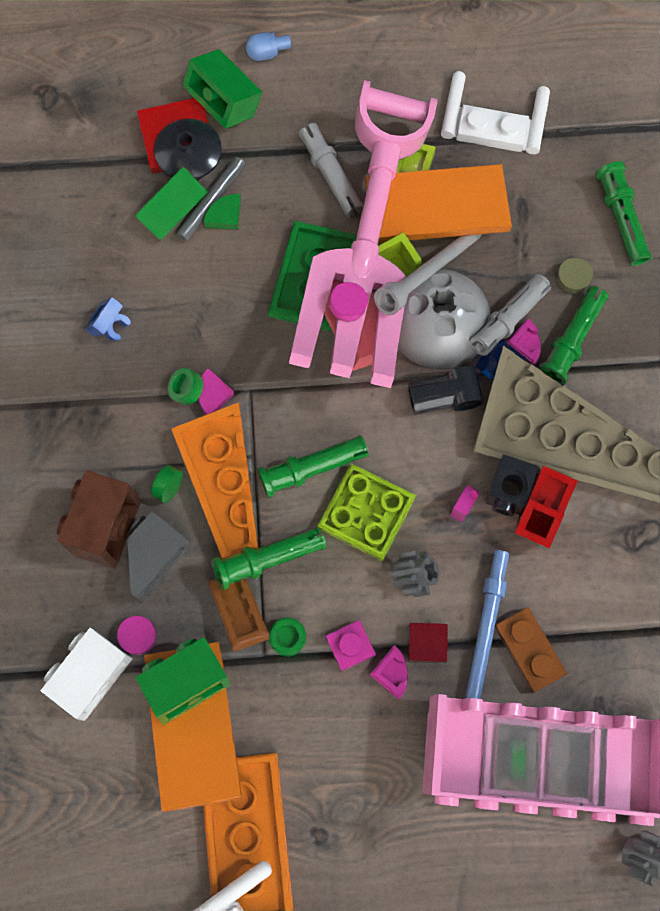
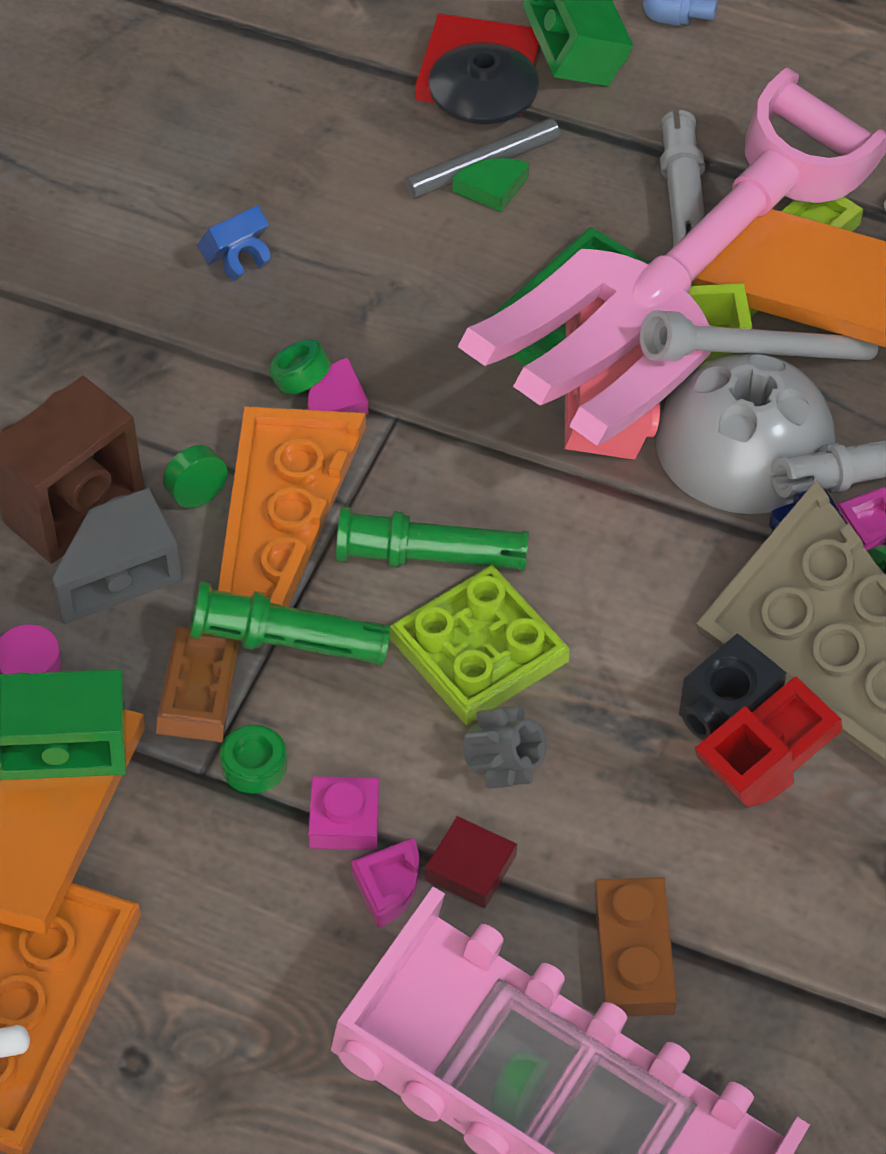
camera: 25 degrees right, 20 degrees down
(171, 204) = (418, 137): green tile -> none
(348, 301) = (597, 315): dark pink tile -> none
(454, 390) = (716, 532): black piece -> none
(464, 503) = (640, 690): dark pink tile -> none
(494, 589) = (620, 835): medium blue bar -> none

